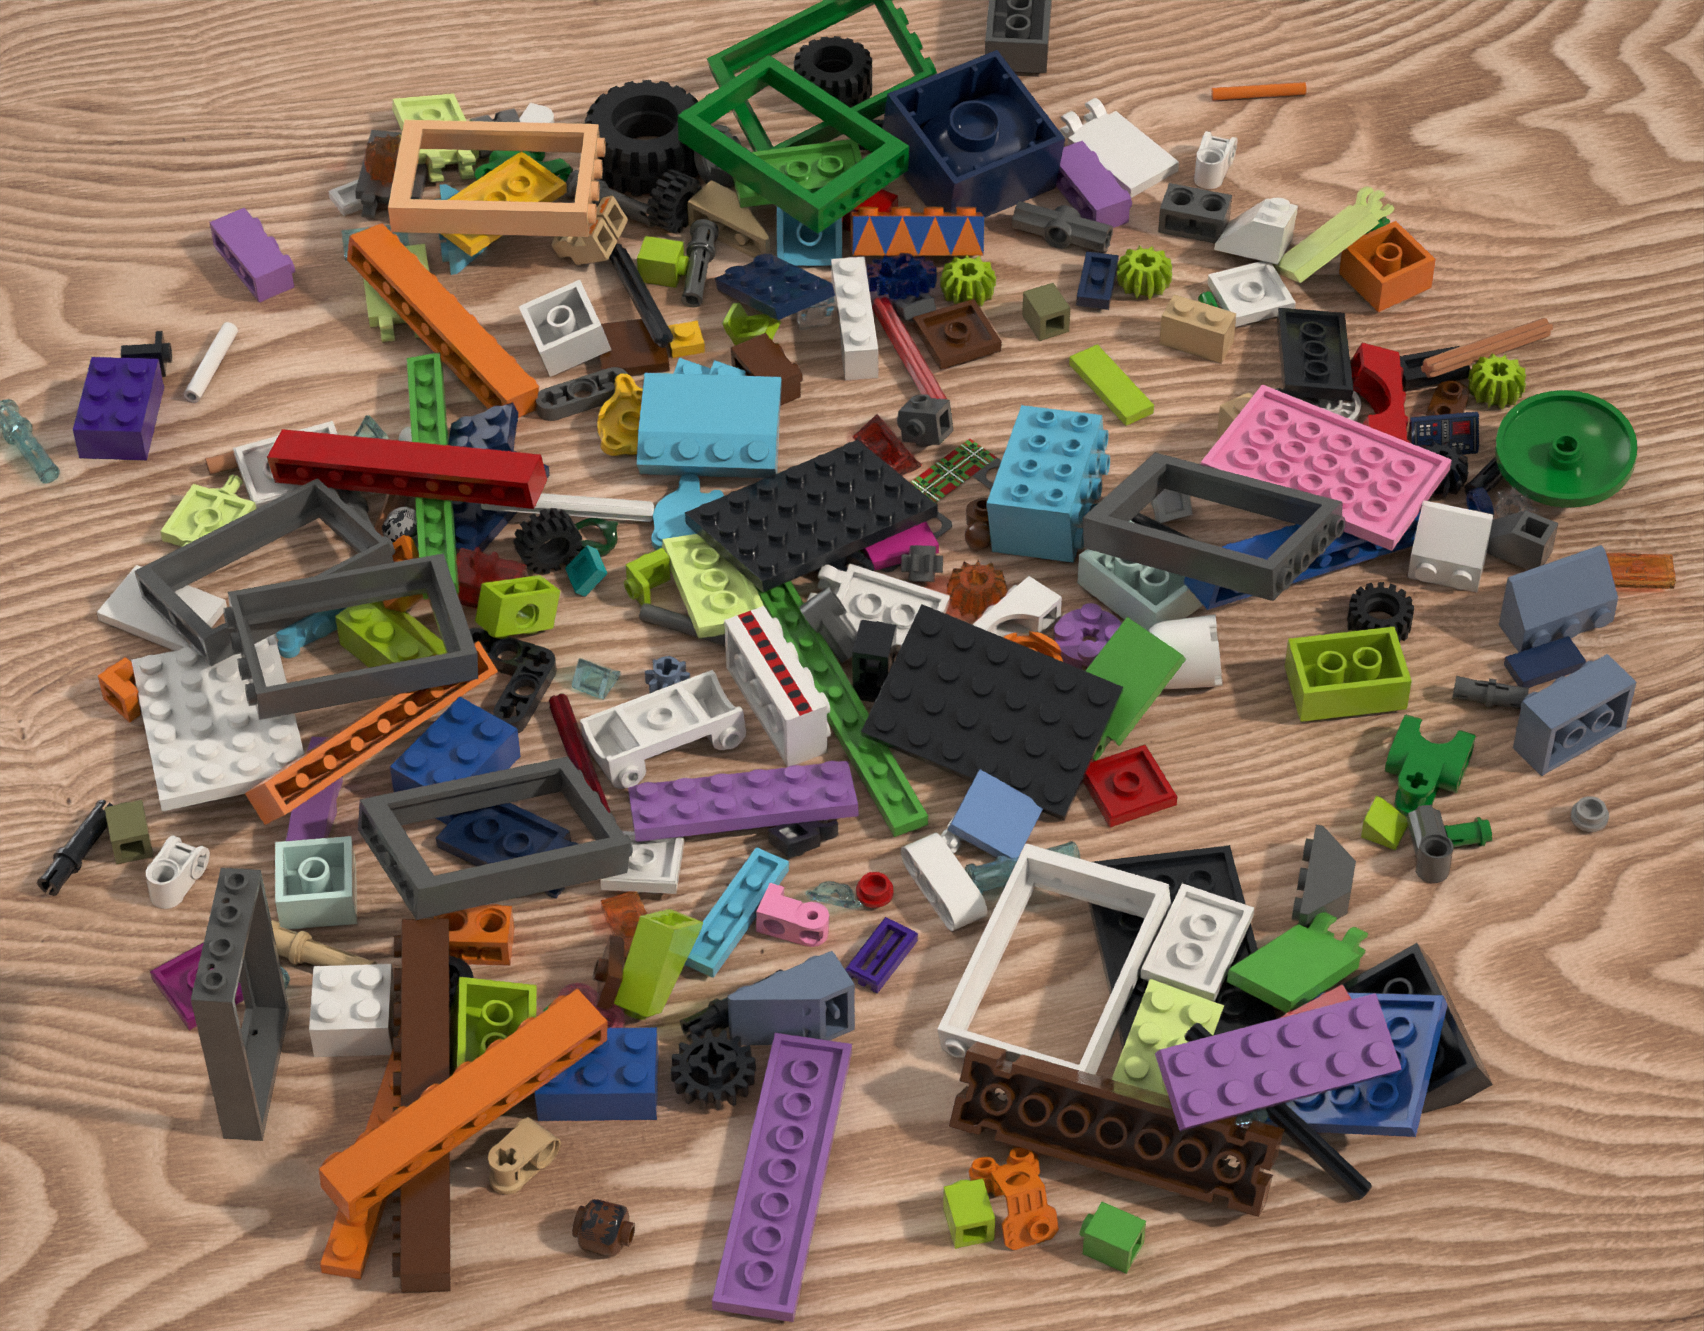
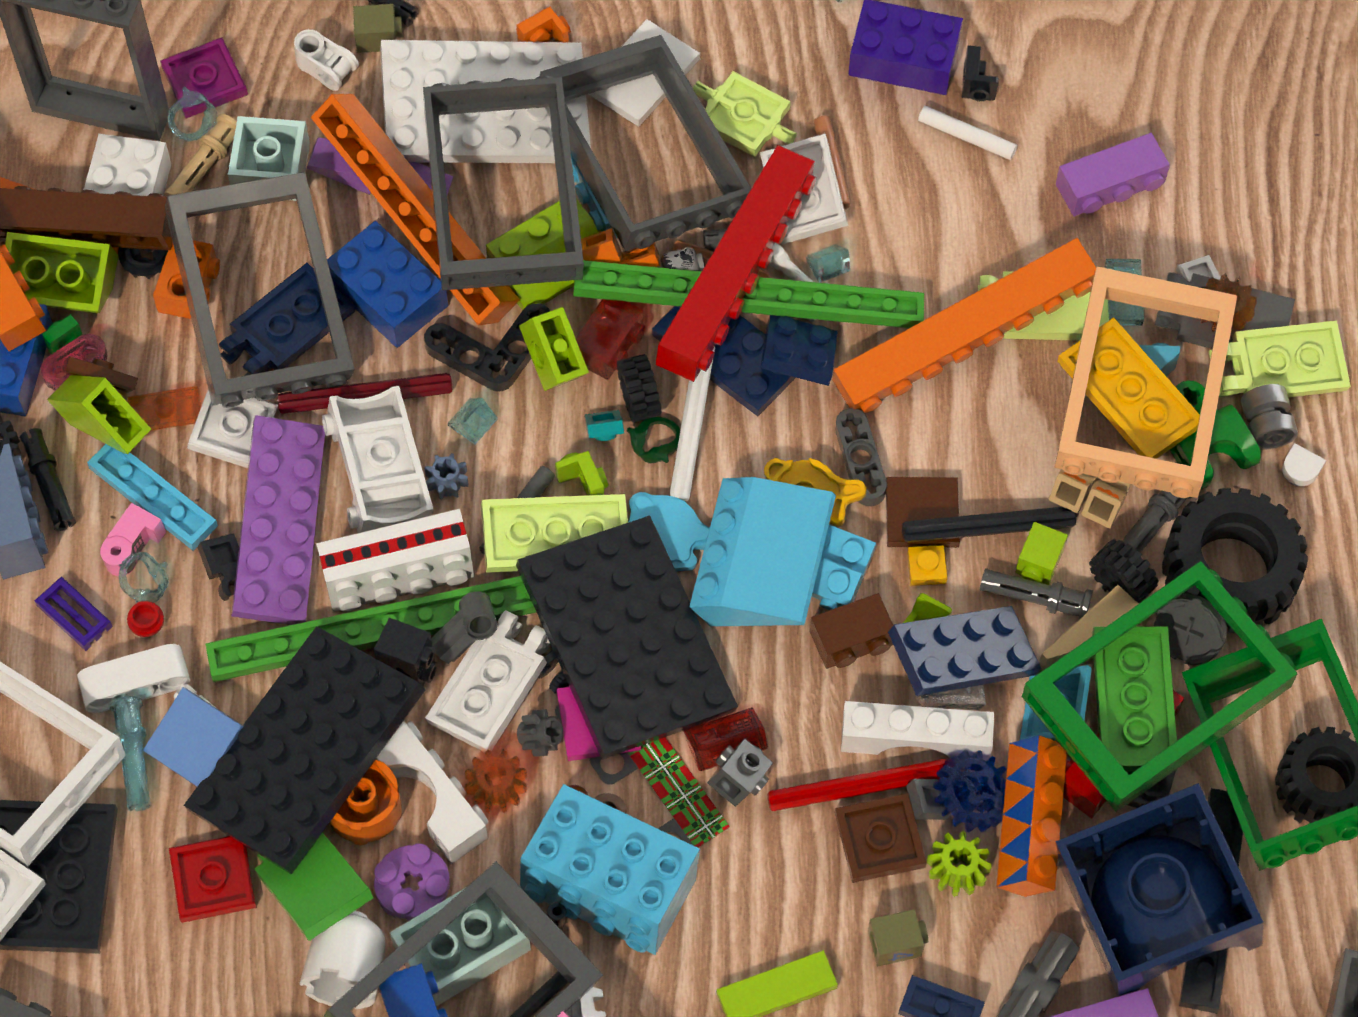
camera: 100 degrees right, 15 degrees up
(565, 328) = (939, 440): white brick -> none

